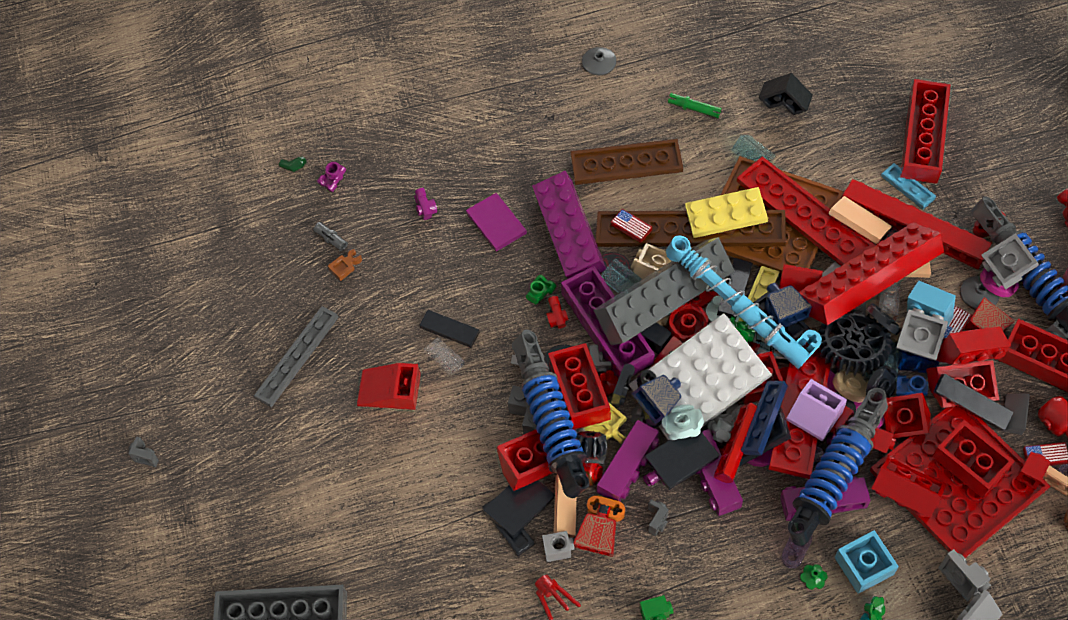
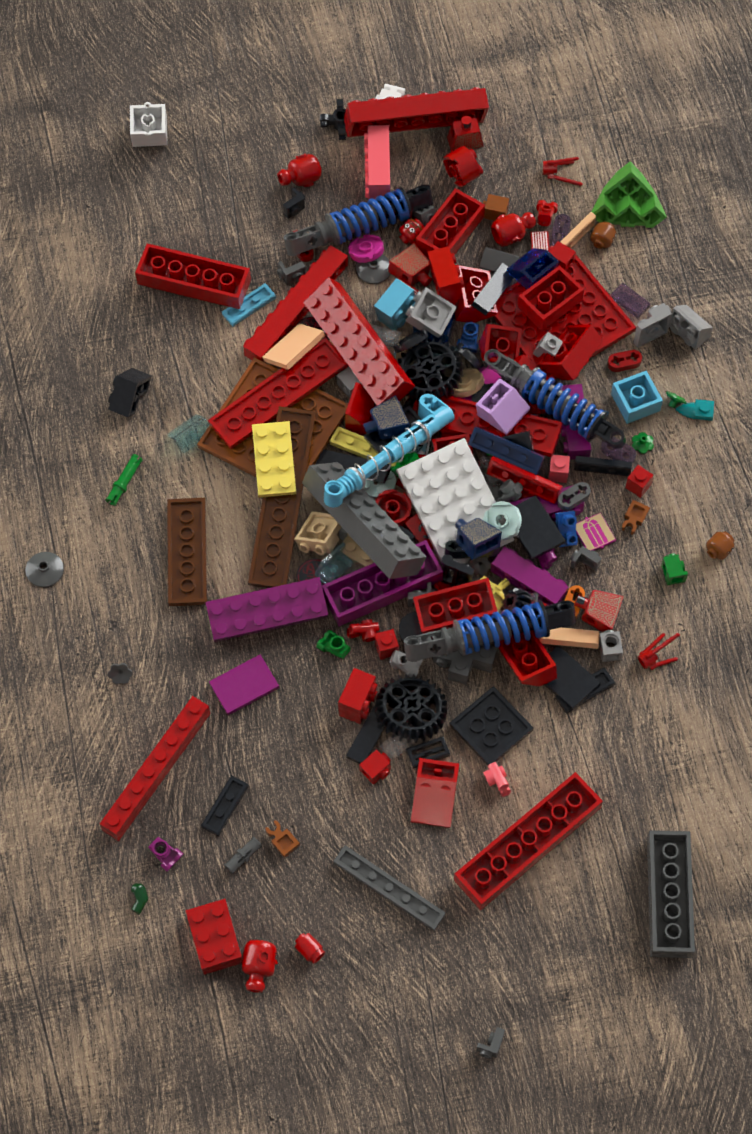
camera: 90 degrees left, 5 degrees up
(227, 254) = (258, 962): none -> red piece
(241, 294) = (309, 948): none -> red brick
(253, 220) = (214, 936): none -> red brick
(339, 473) = (527, 841): none -> red brick
(378, 219) = (224, 805): none -> black tile
(405, 442) = (497, 775): none -> coral plate
(410, 160) = (155, 768): none -> red brick
(415, 334) = (375, 766): none -> red brick
(424, 207) = (217, 753): magenta plate -> none
(440, 394) = (412, 758): none -> black tile
(462, 435) = (491, 726): none -> black plate
(471, 351) = (411, 712): none -> black gear
(483, 309) = (357, 696): none -> red brick
(500, 124) = (120, 673): none -> dark grey plant
(544, 332) = (386, 643): none -> red brick
(631, 226) = (274, 549): tile -> none
(688, 493) = (566, 524): none -> blue hips
(693, 528) = (594, 532): none -> piece
(718, 569) = (635, 515): none -> dark orange plate
(728, 492) = (572, 493): none -> dark grey beam
(759, 569) = (639, 481): none -> red brick
(762, 484) = (559, 468): none -> coral brick
(773, 531) = (603, 466): none -> black tile
(910, 459) = (548, 344): none -> light grey bracket
(920, 550) = (624, 360): none -> red beam
(952, 215) = (291, 273): none -> dark grey bracket
(998, 554) = (630, 300): none -> clear purple plate
(1009, 261) = (360, 232): light grey plate -> none
(1011, 439) = (533, 267): none -> clear blue slope
(1033, 317) = (410, 231): none -> red head
(1036, 211) = (294, 205): none -> black bracket

